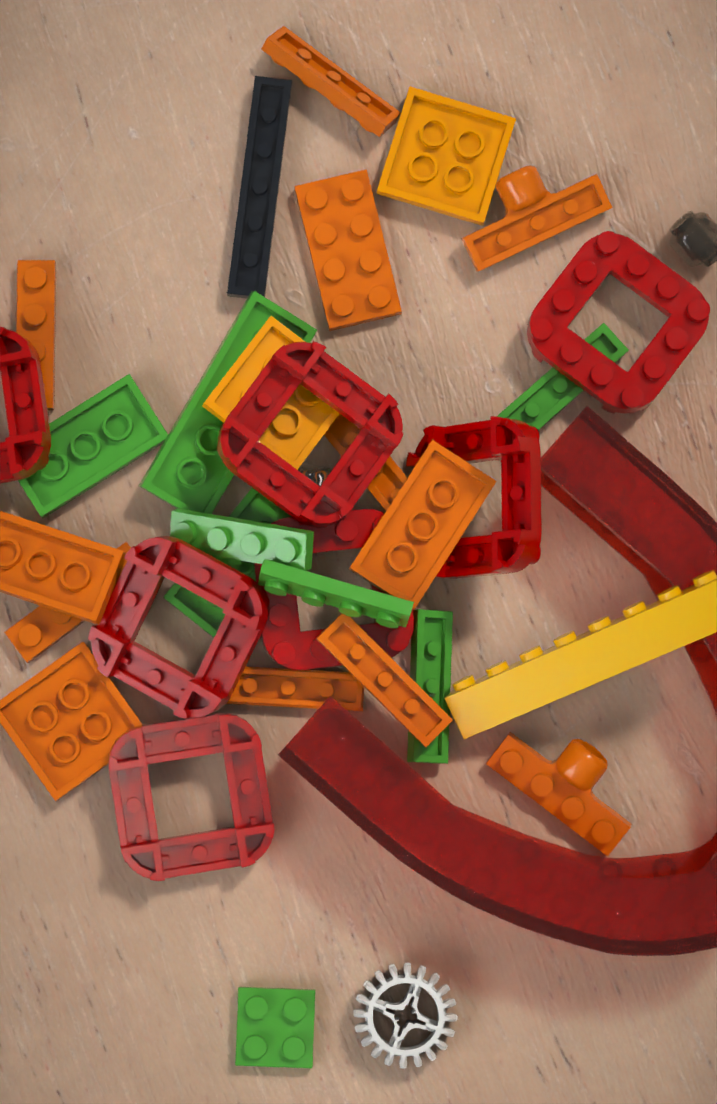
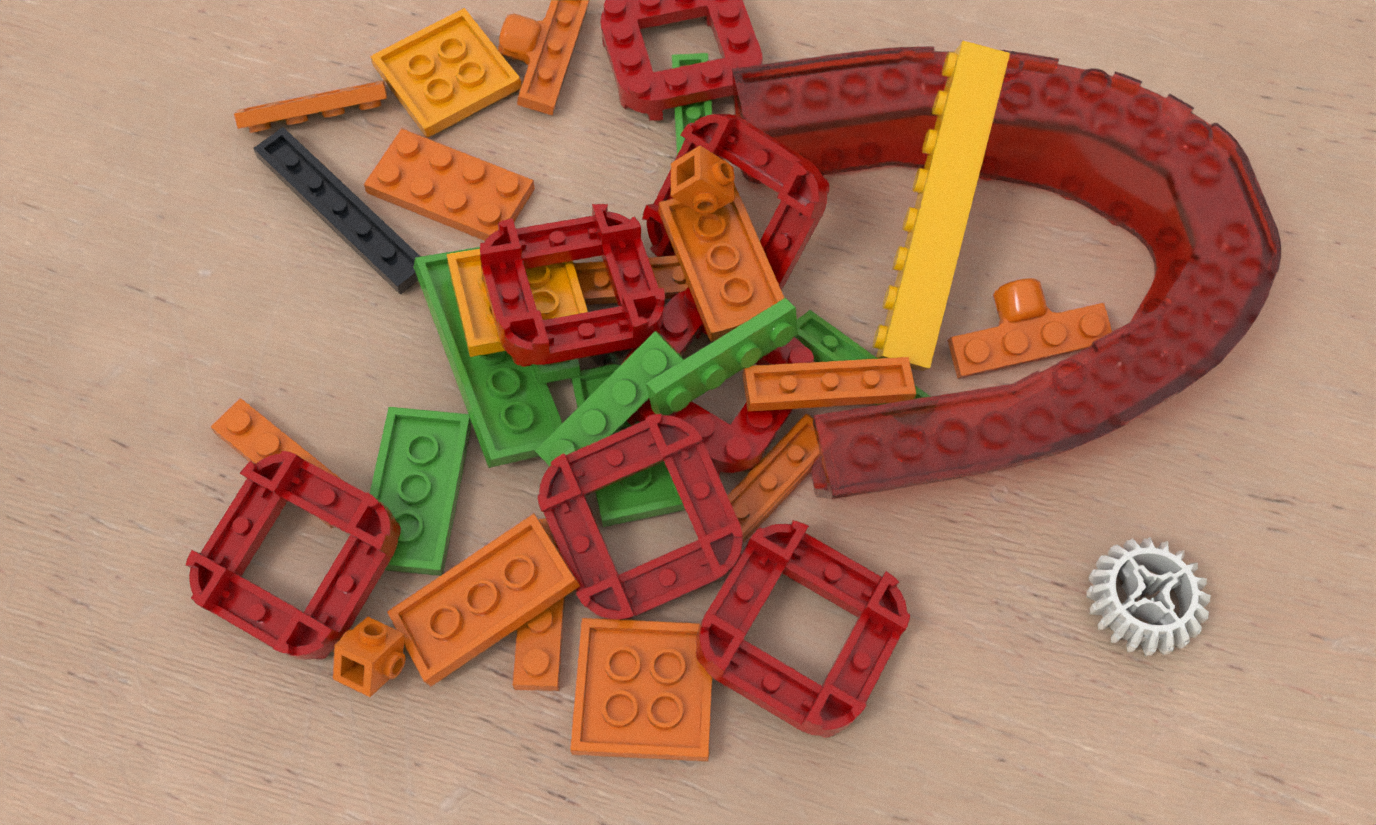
camera: 45 degrees left, 20 degrees down
(275, 1027) = (1078, 723): bright green plate -> none
(469, 470) = (702, 181): none -> orange brick

